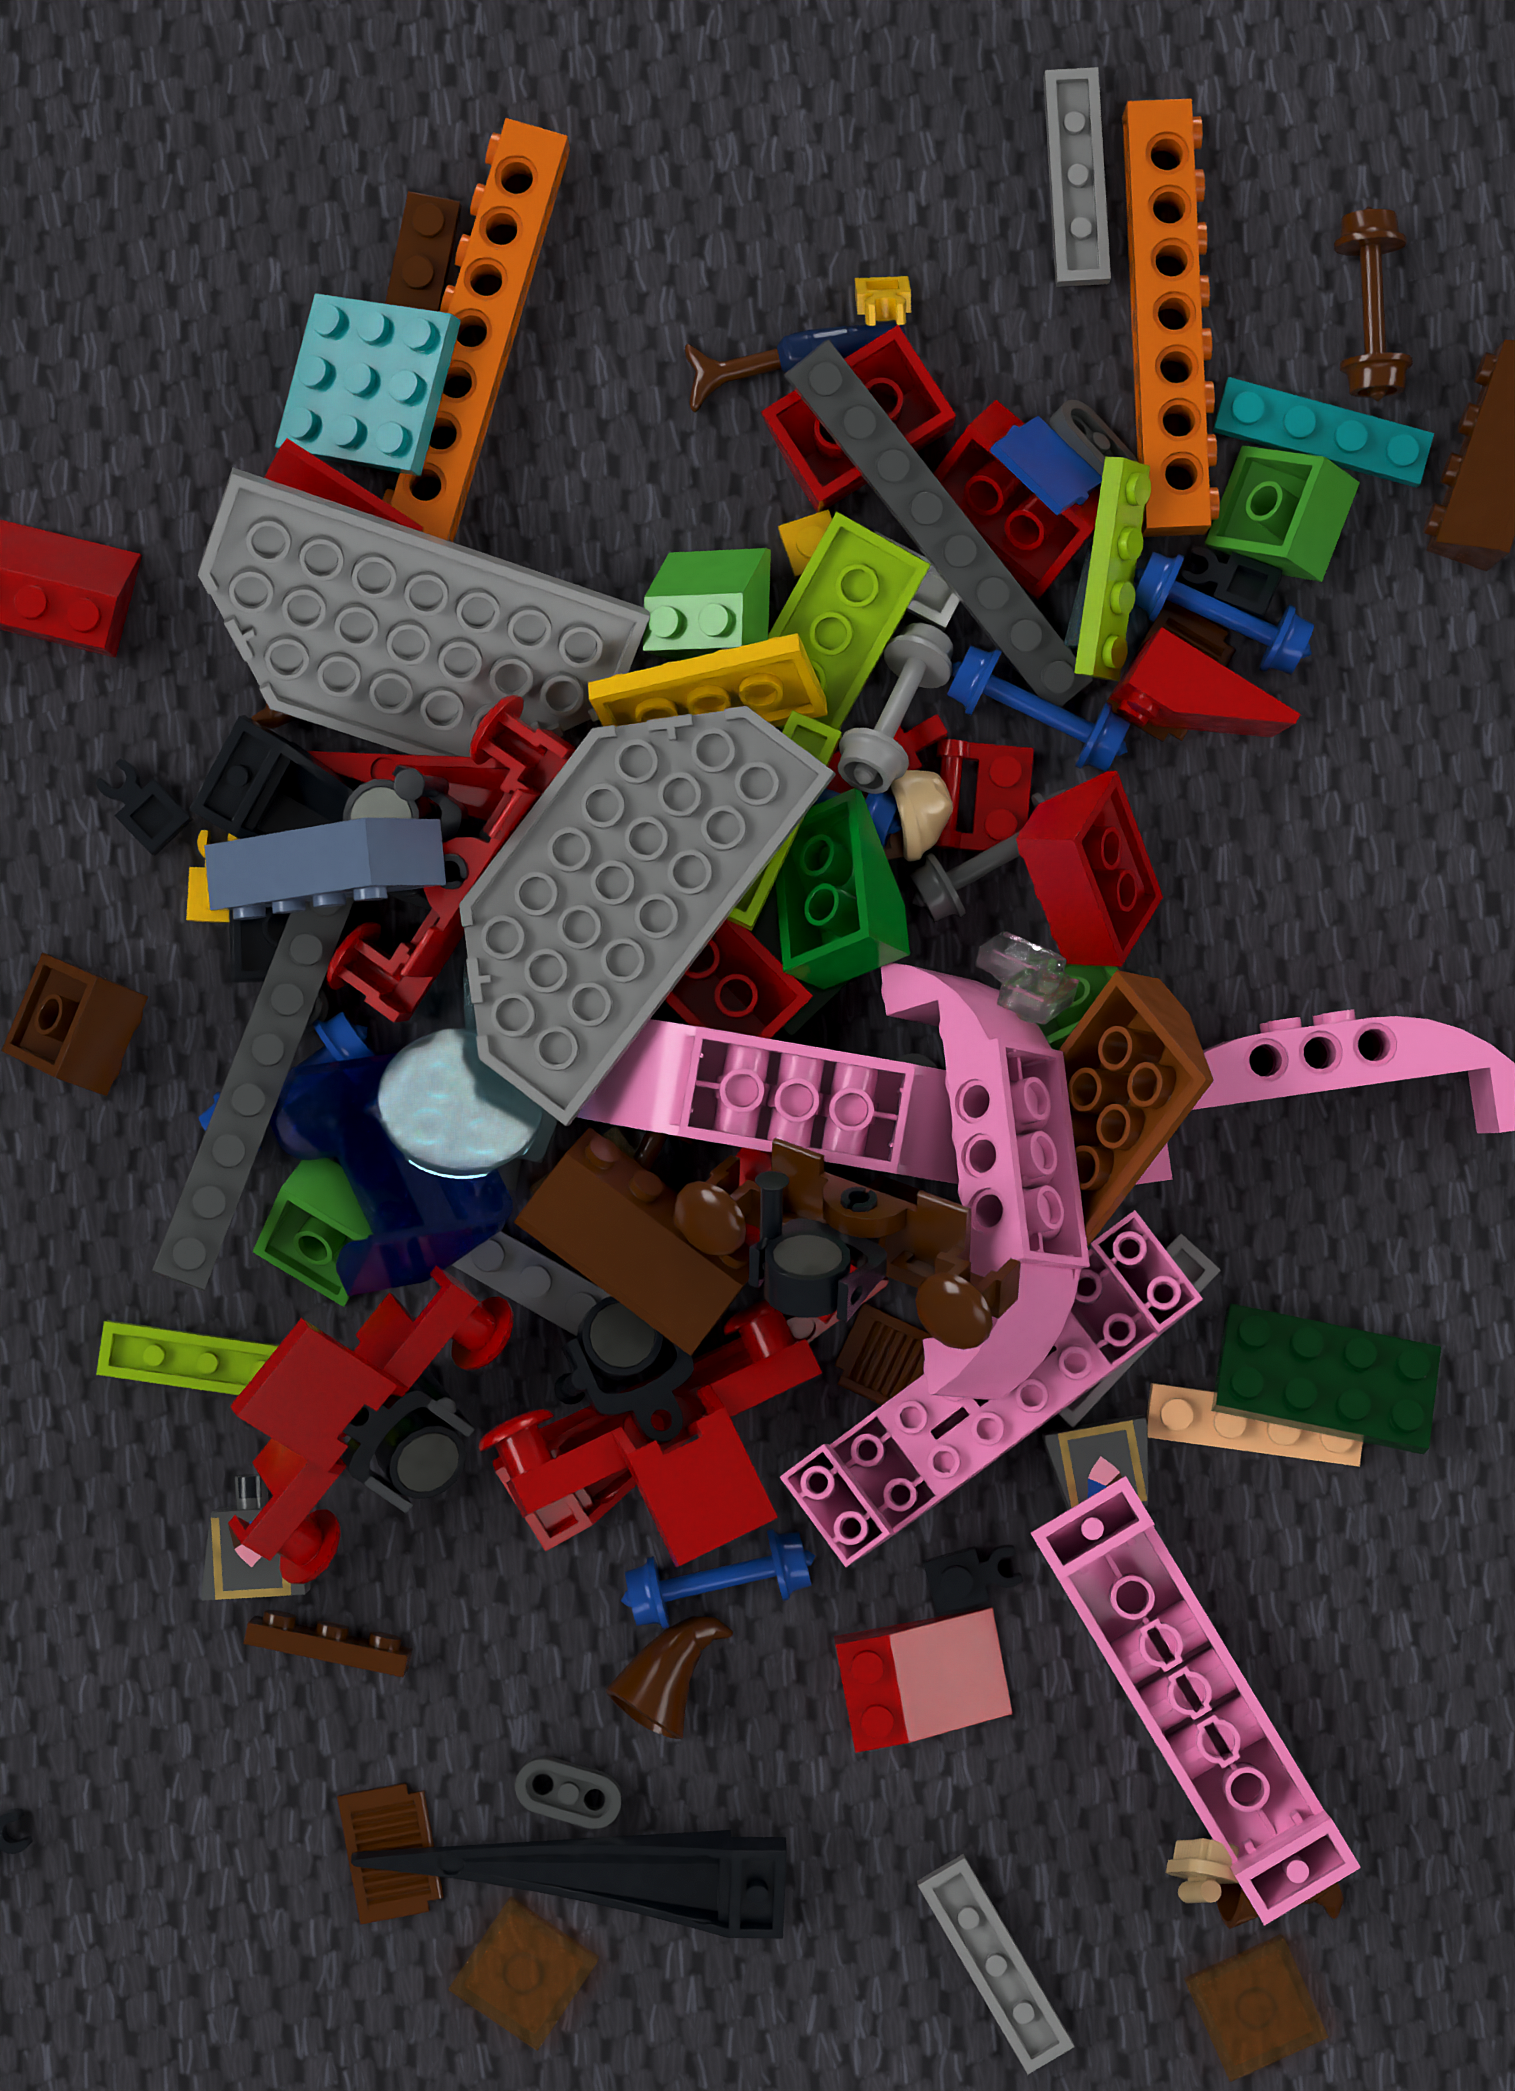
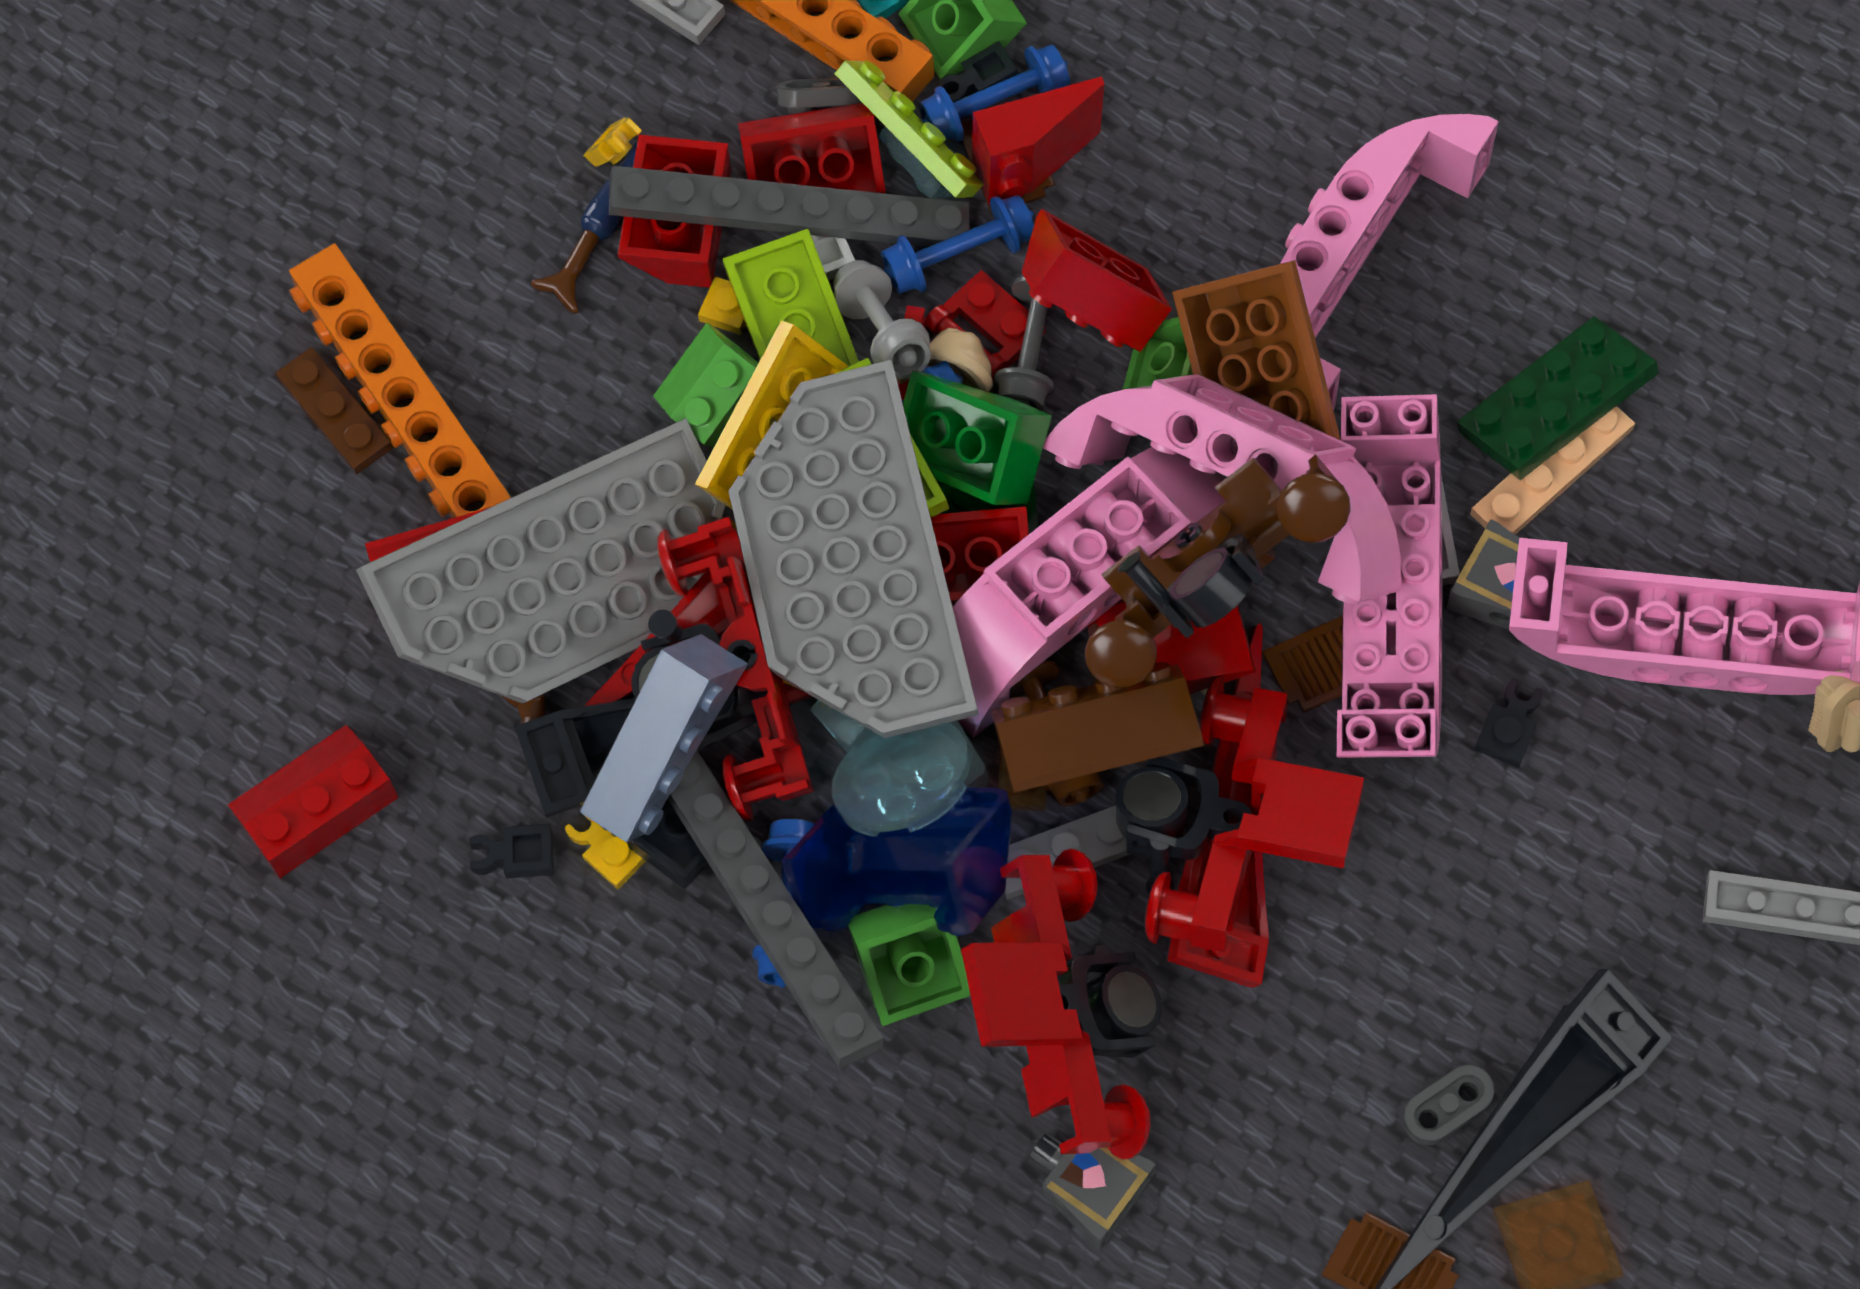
camera: 45 degrees left, 20 degrees down
(74, 1024) = (619, 1013): reddish brown slope -> none
(180, 1357) = (932, 1115): lime plate -> none
(328, 1643) = (1204, 1185): reddish brown plate -> none
(369, 383) = (373, 480): teal plate -> none
(649, 1593) = (1400, 829): blue piece -> none
(657, 1680) = (1418, 983): reddish brown hat -> none
(922, 1678) = (1555, 808): slope -> none
(1030, 976) = (1130, 370): clear plate -> none
(1047, 465) = (808, 115): blue piece -> none

